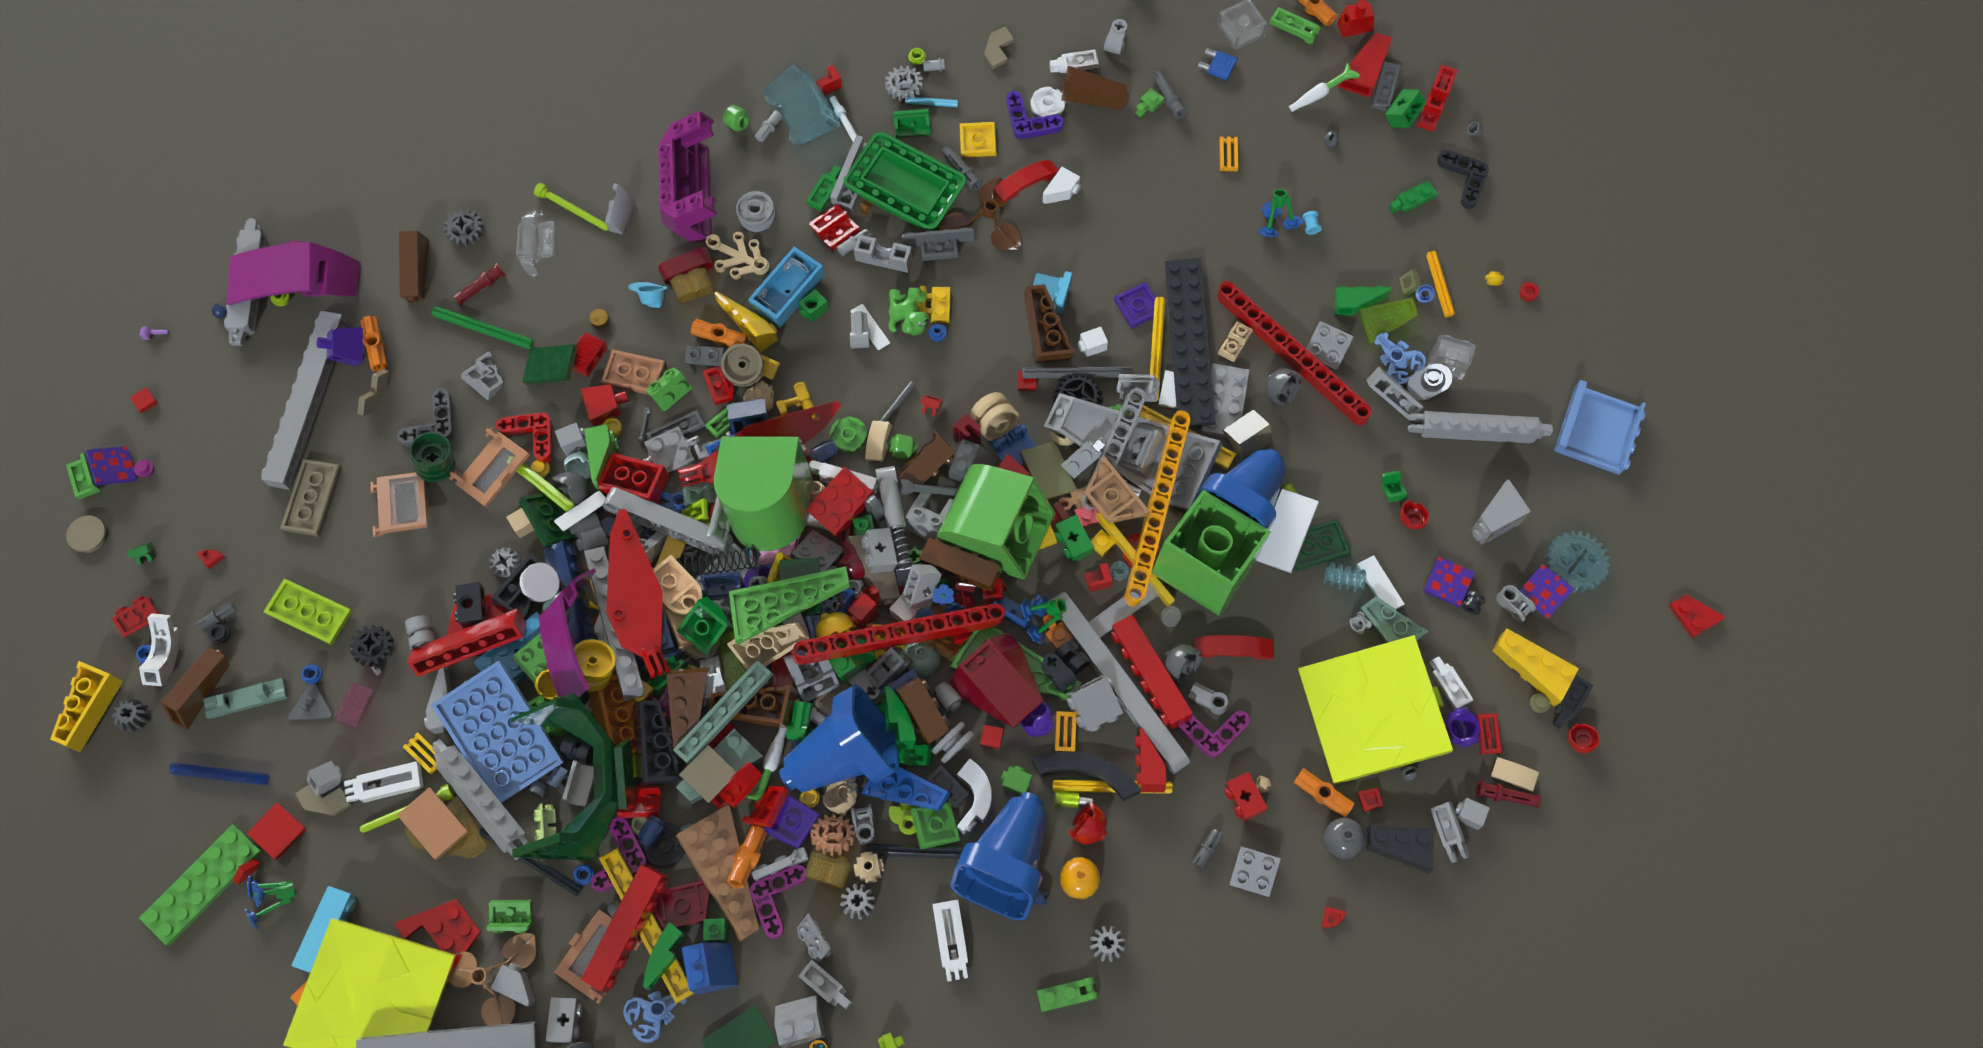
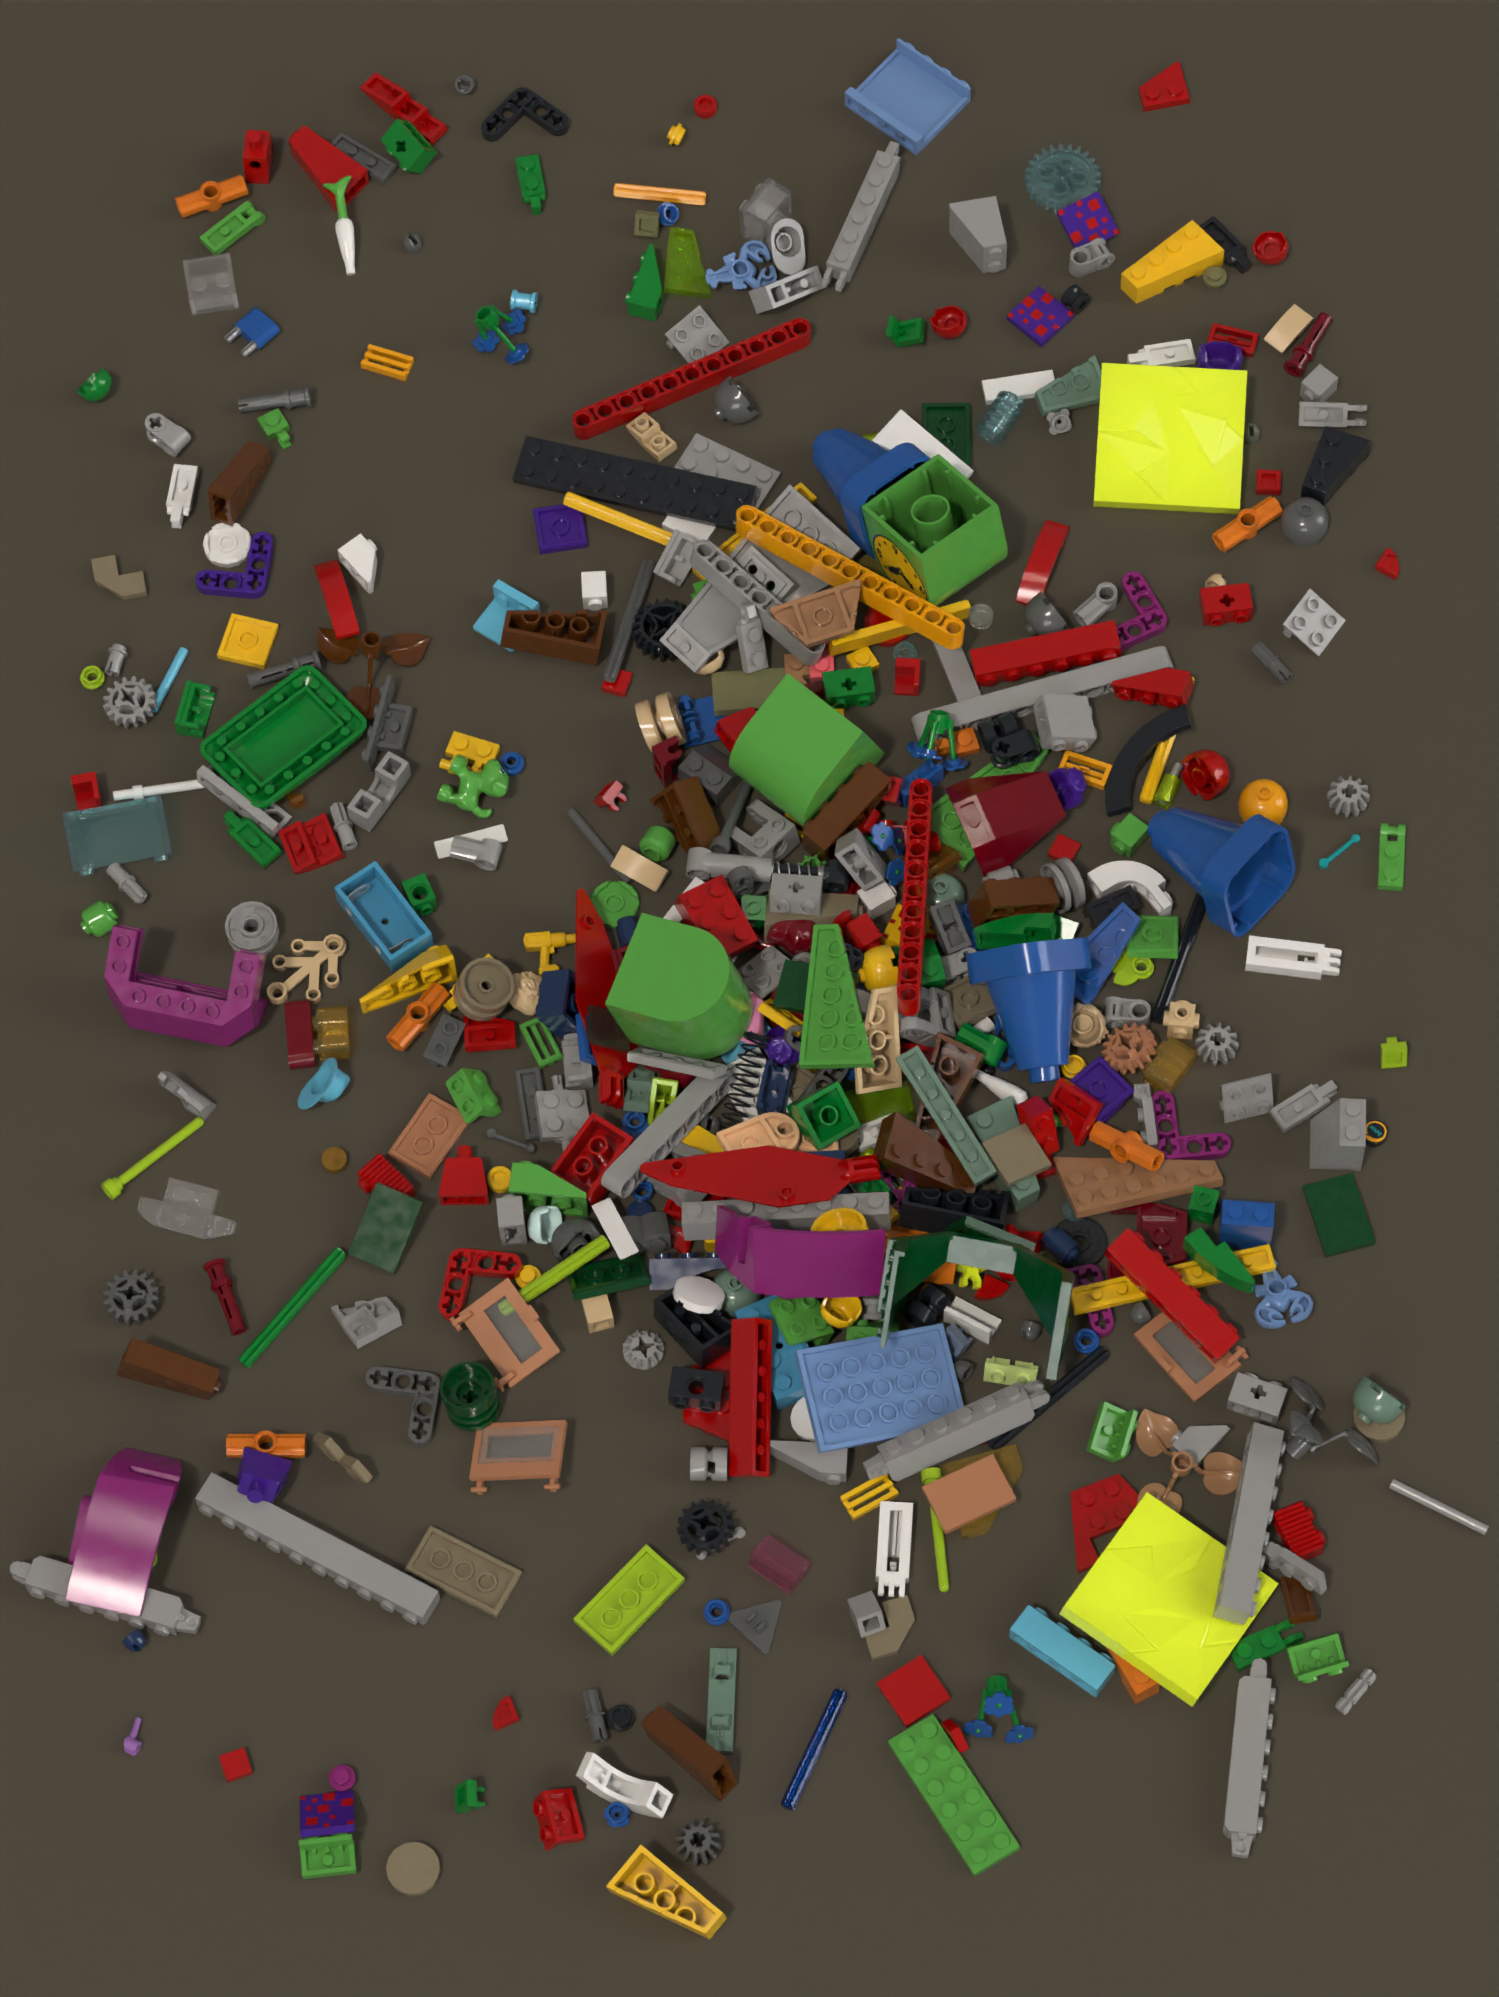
camera: 70 degrees left, 5 degrees down
(1045, 942) = (1324, 862): none -> teal hinge
(1248, 434) = (782, 458): slope -> none

